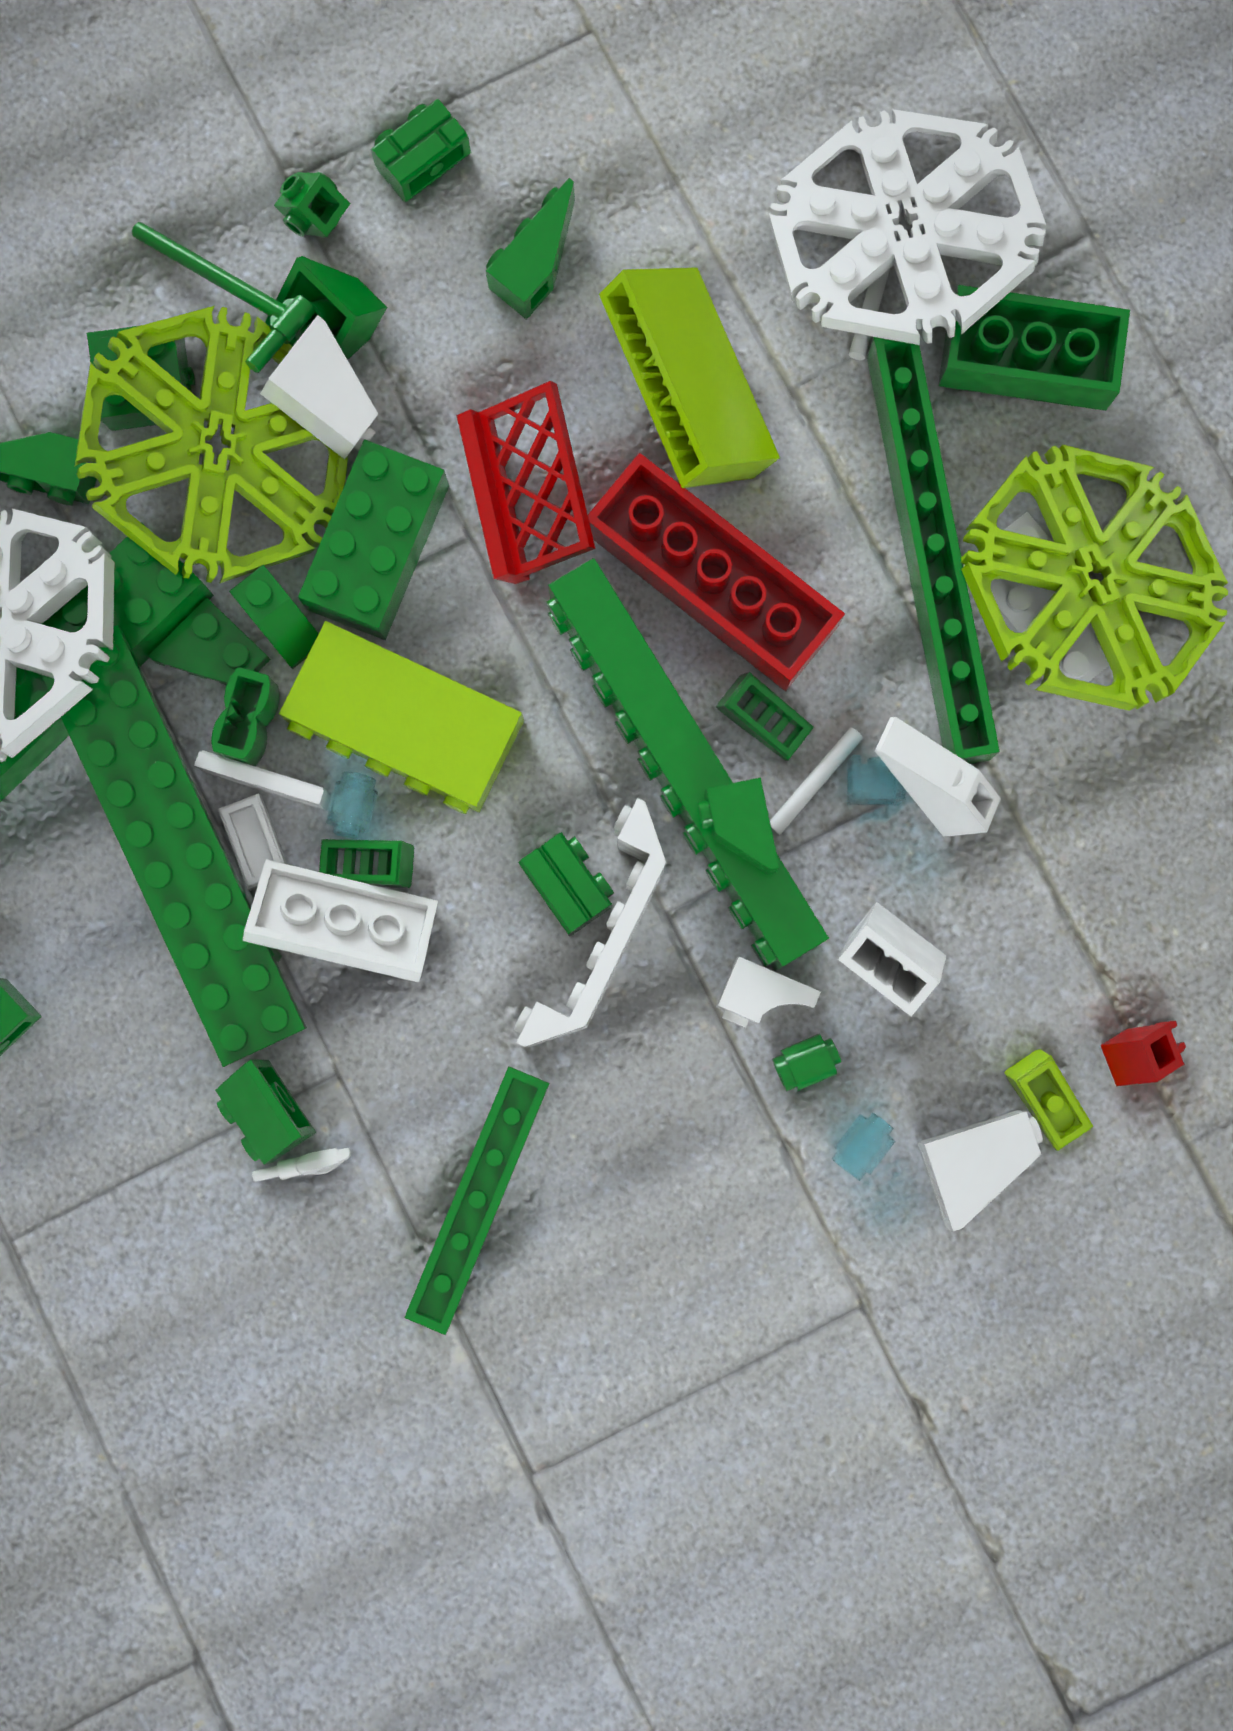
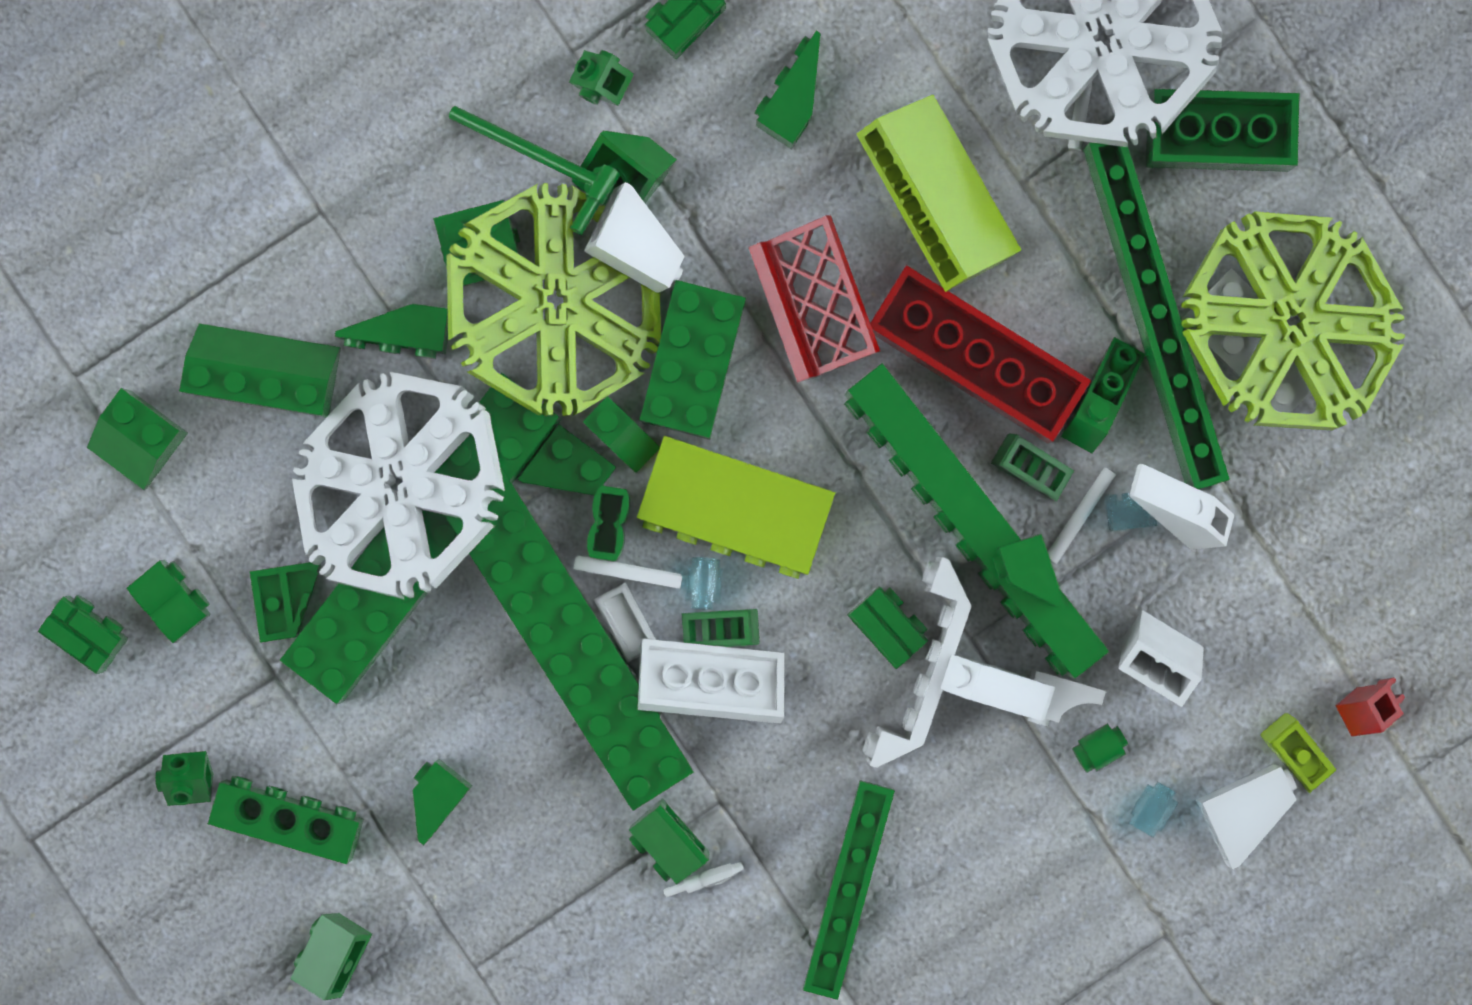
camera: 15 degrees left, 5 degrees up
(686, 967) = (997, 687): none -> white slope
(857, 642) = (1103, 396): none -> green slope

